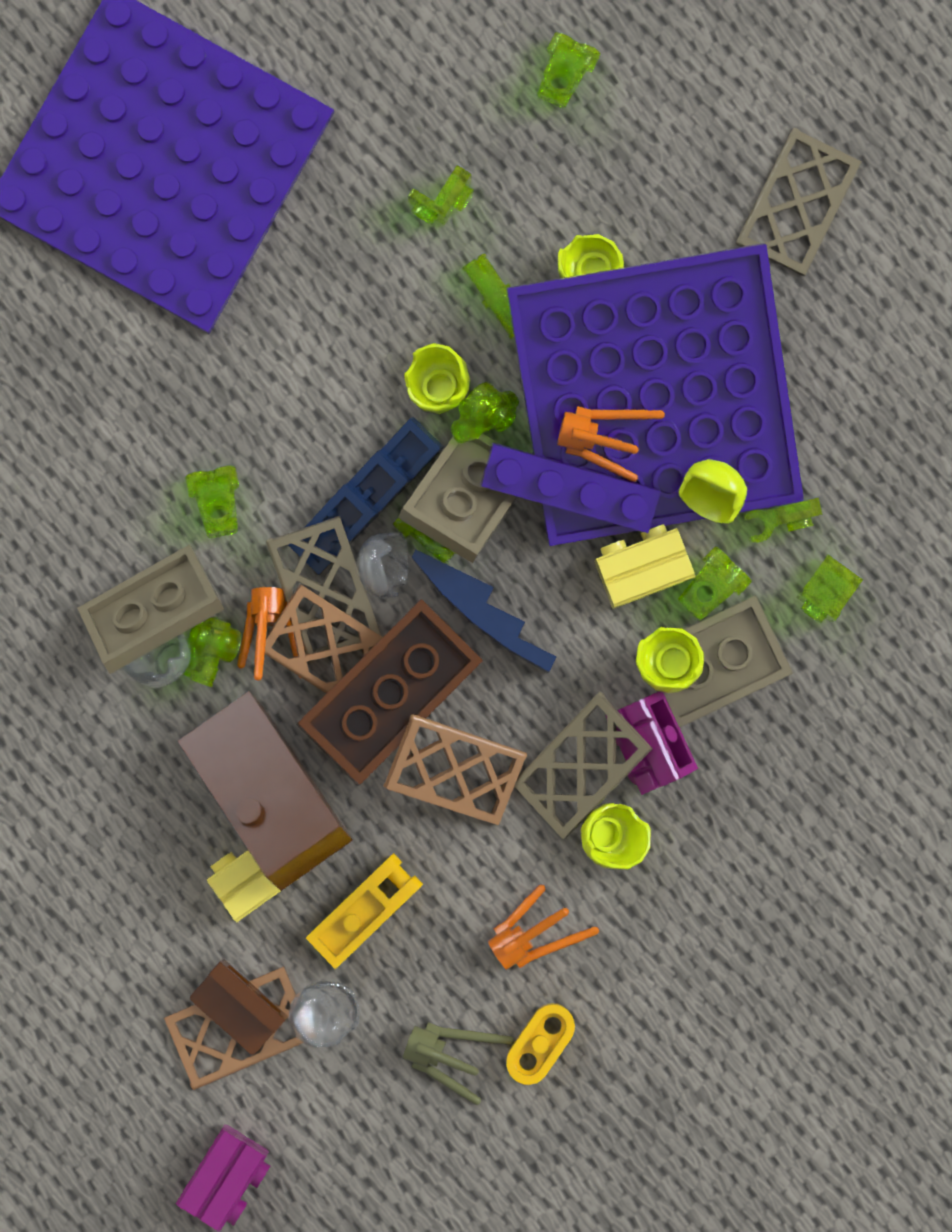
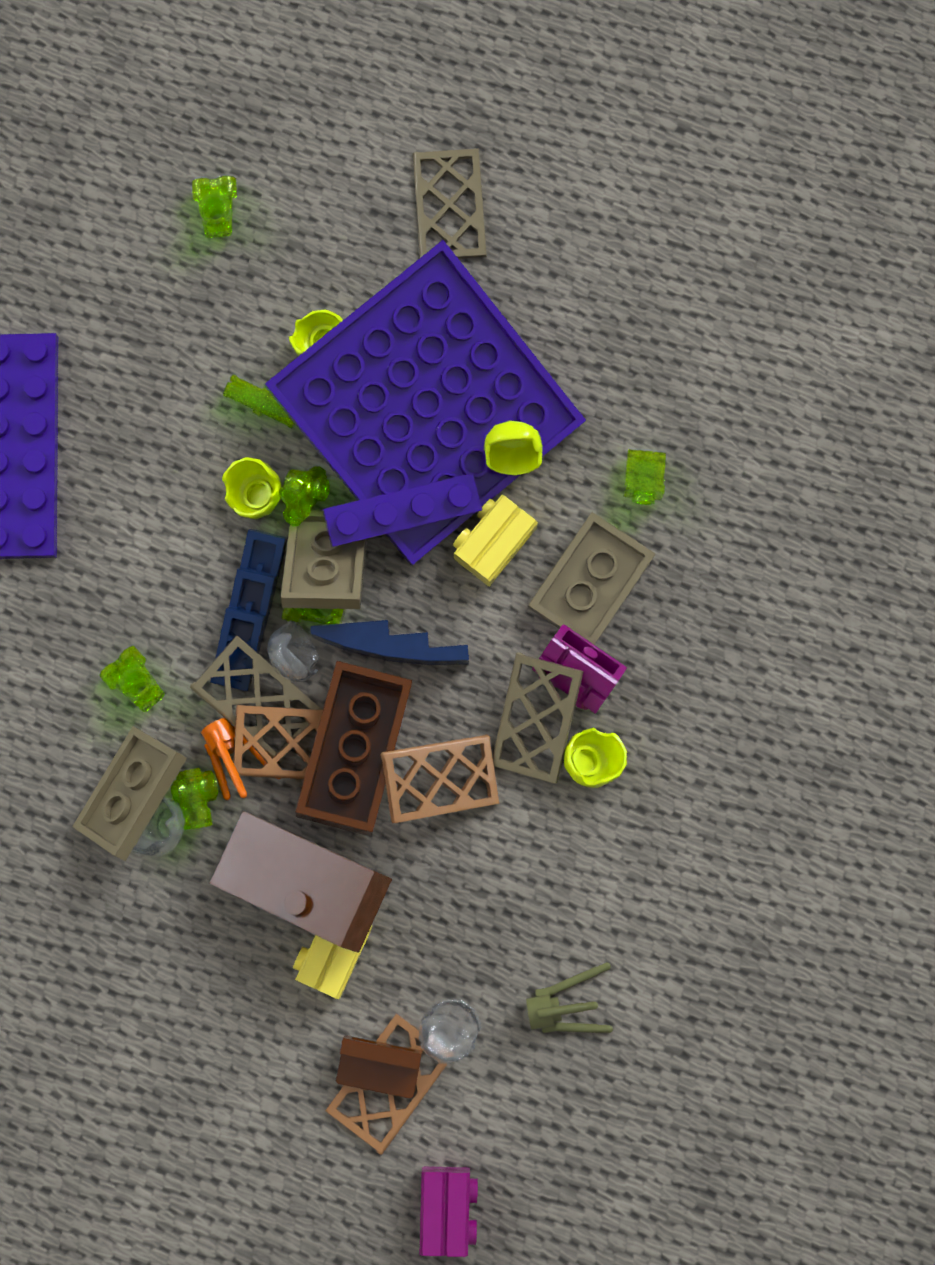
camera: 30 degrees left, 5 degrees down
(362, 912) = (433, 933): yellow plate -> none
(452, 196) = (184, 344): clear neon green bracket -> none
(511, 944) = (565, 889): orange plant -> none
(540, 1043) = (635, 954): yellow plate -> none
(580, 433) = (384, 461): orange plant -> none
(670, 659) = (556, 596): neon yellow hair -> none
(721, 577) = (557, 513): clear neon green plate -> none
(795, 516) = (585, 435): clear neon green plate -> none

